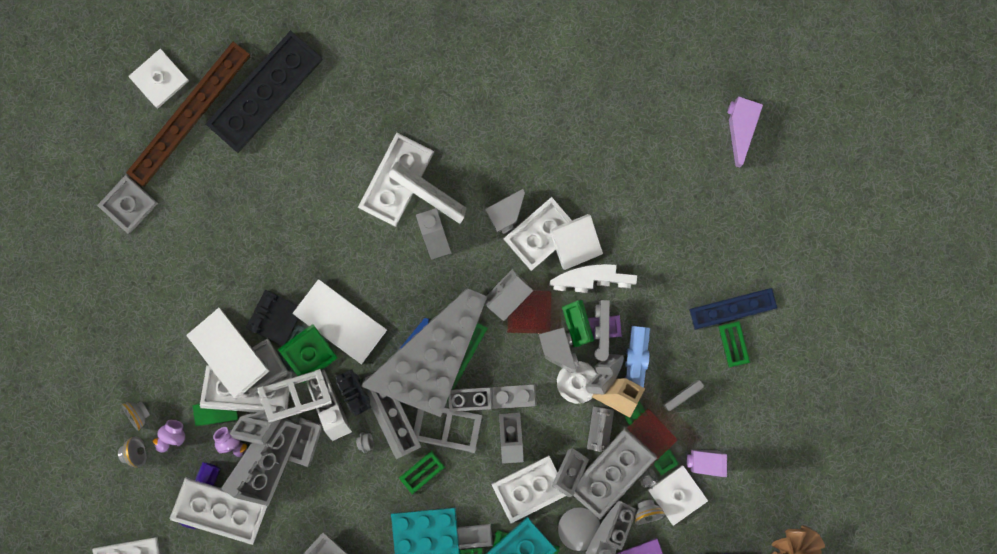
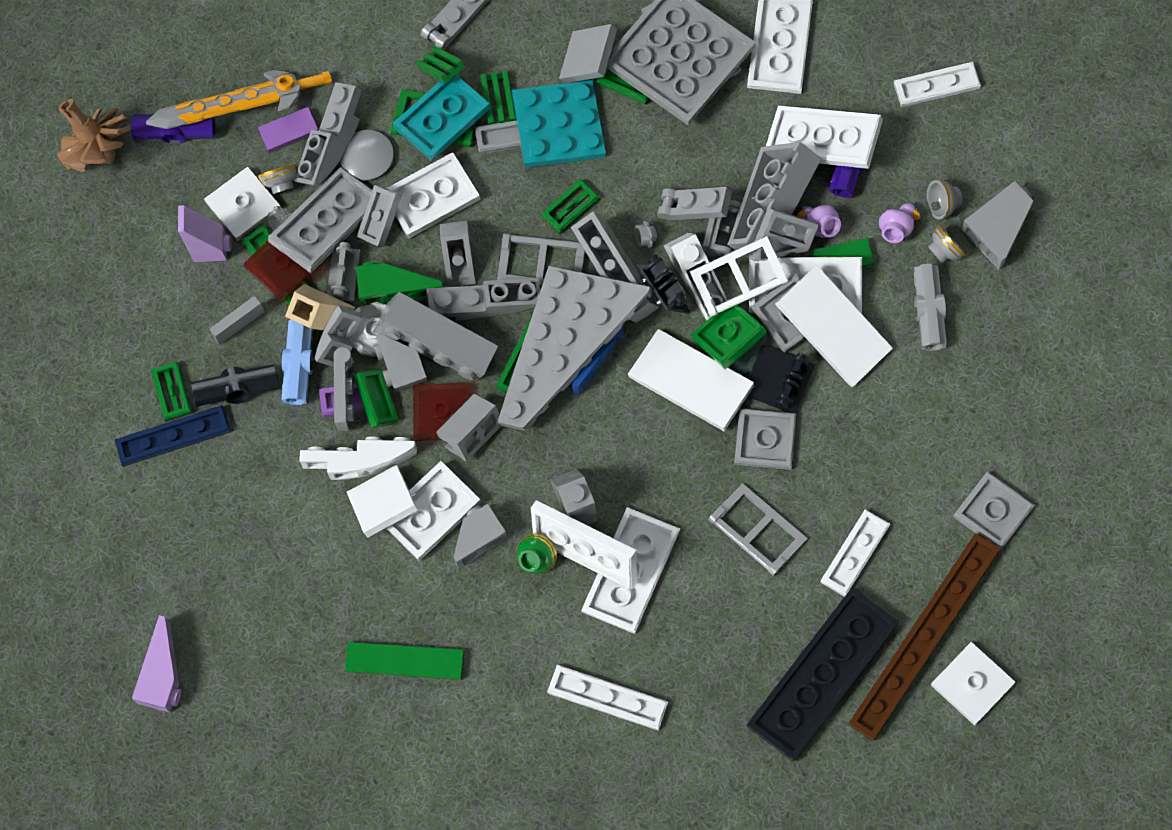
camera: 175 degrees left, 15 degrees down
(91, 429) = (999, 222): none -> light grey slope
(154, 365) = (930, 307): none -> light grey piece
(231, 180) = (855, 553): none -> white tile
(289, 272) = (765, 439): none -> light grey tile
(311, 193) = (744, 543): none -> light grey window
(323, 462) = (695, 203): none -> light grey plate
(419, 87) = (607, 697): none -> white tile
(464, 193) = (536, 554): none -> green piece
(530, 366) = (435, 336): none -> light grey wedge
(564, 124) = (404, 661): none -> green tile
(567, 416) = (383, 282): none -> green slope
(685, 342) = (235, 385): none -> black piece

